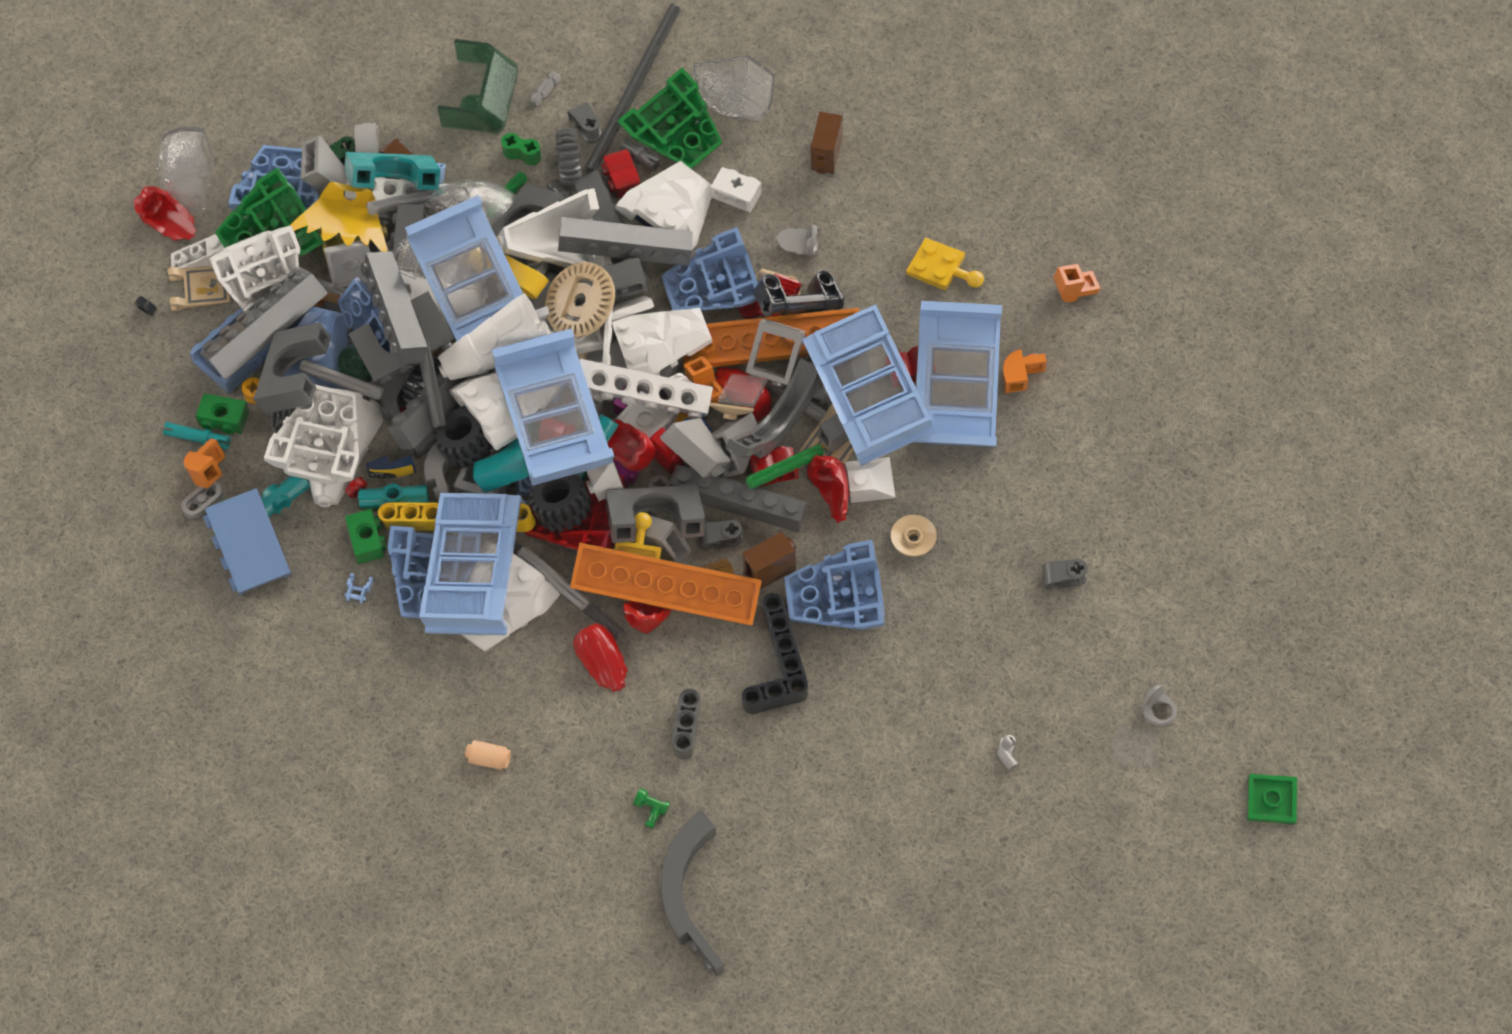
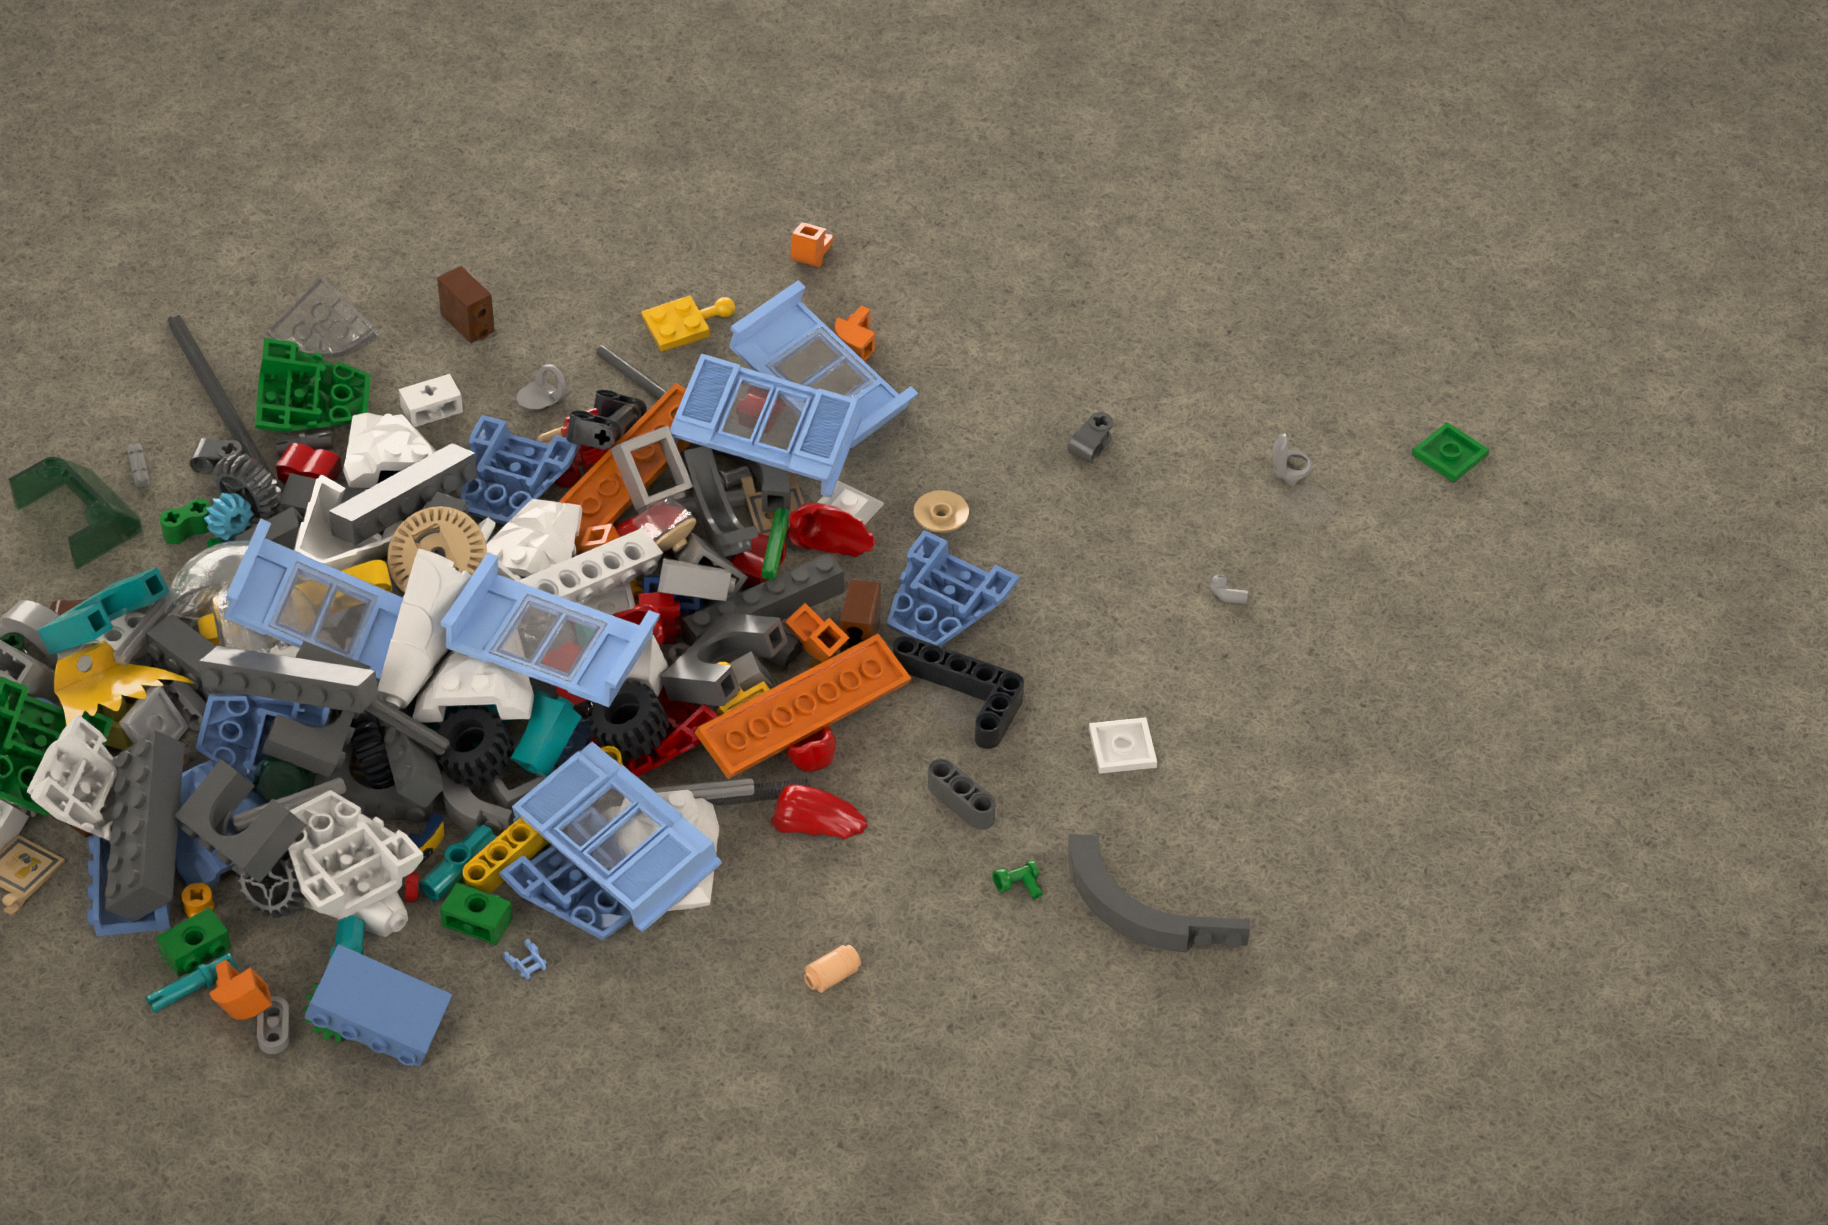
camera: 55 degrees left, 15 degrees down
(540, 167) = (229, 516): none -> medium azure gear
(729, 546) = (818, 637): none -> orange brick
(815, 785) = (1122, 745): none -> white tile
(870, 274) = (630, 371): none -> dark grey piece

